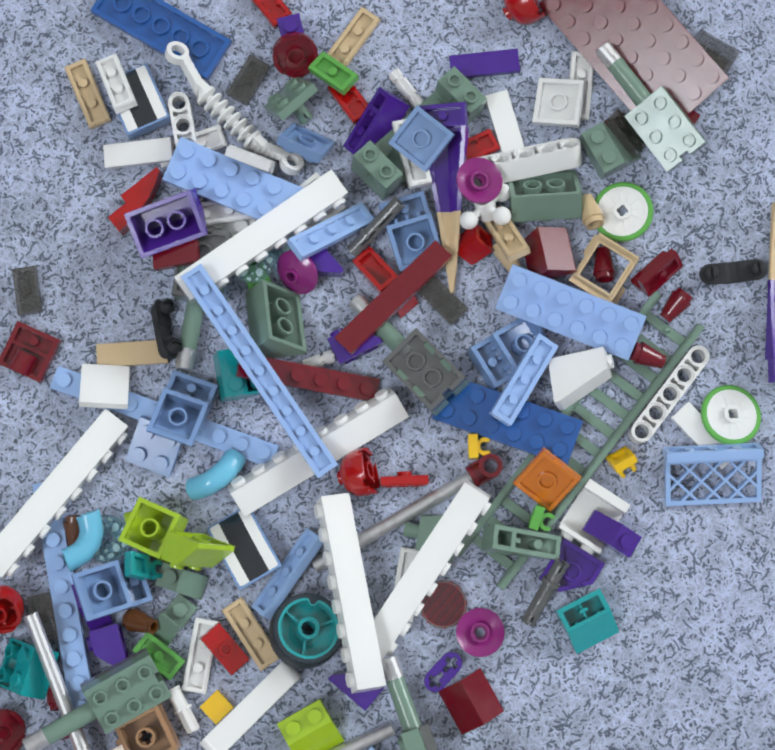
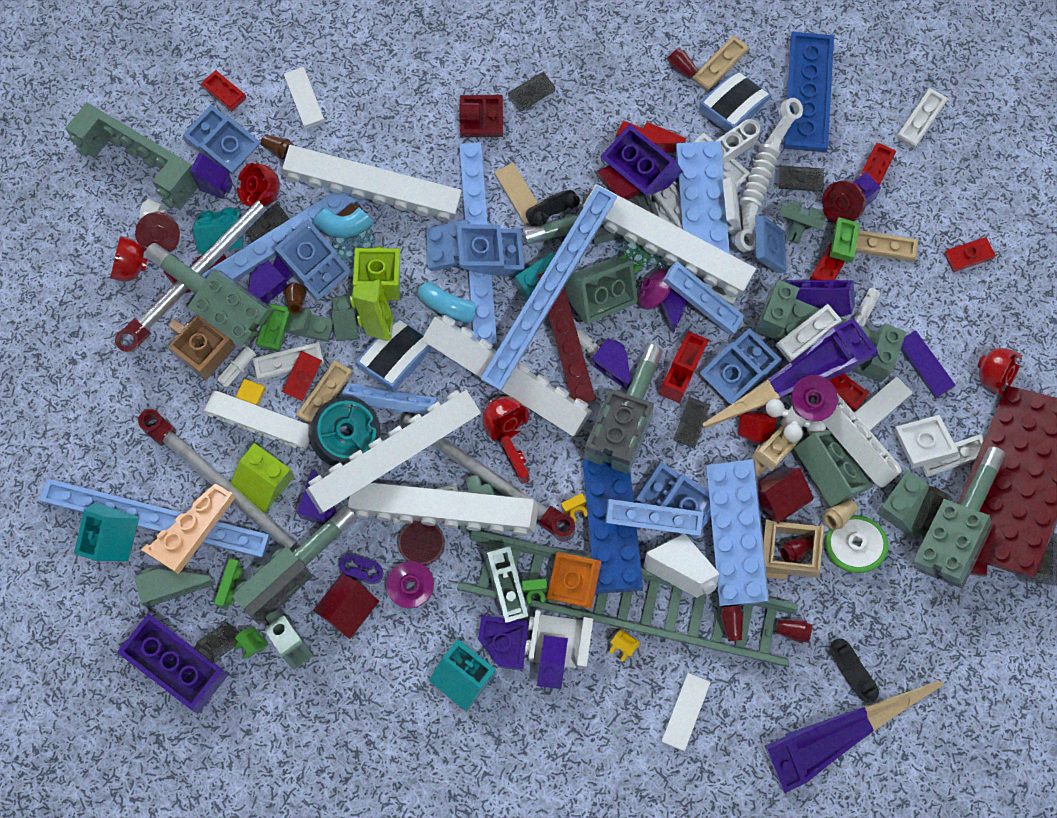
camera: 65 degrees right, 10 degrees down
(70, 130) = (682, 63): none -> dark red cone
(104, 386) = (479, 181): white tile -> none
(116, 83) = (740, 77): white tile -> none
(138, 153) = (690, 119): white tile -> none
(139, 566) = (339, 274): teal plate -> none
(368, 233) = (718, 332): dark grey pin -> none
(393, 297) = (672, 375): dark red tile -> none
(421, 138) = (824, 330): medium blue plate -> none
(549, 584) = (470, 624): dark grey pin -> none
(657, 272) = (816, 599): dark red panel -> none
(676, 386) = (719, 657): white beam -> none
(713, 454) = (673, 729): light blue fence -> none
(716, 417) = (703, 735): white wheel -> none

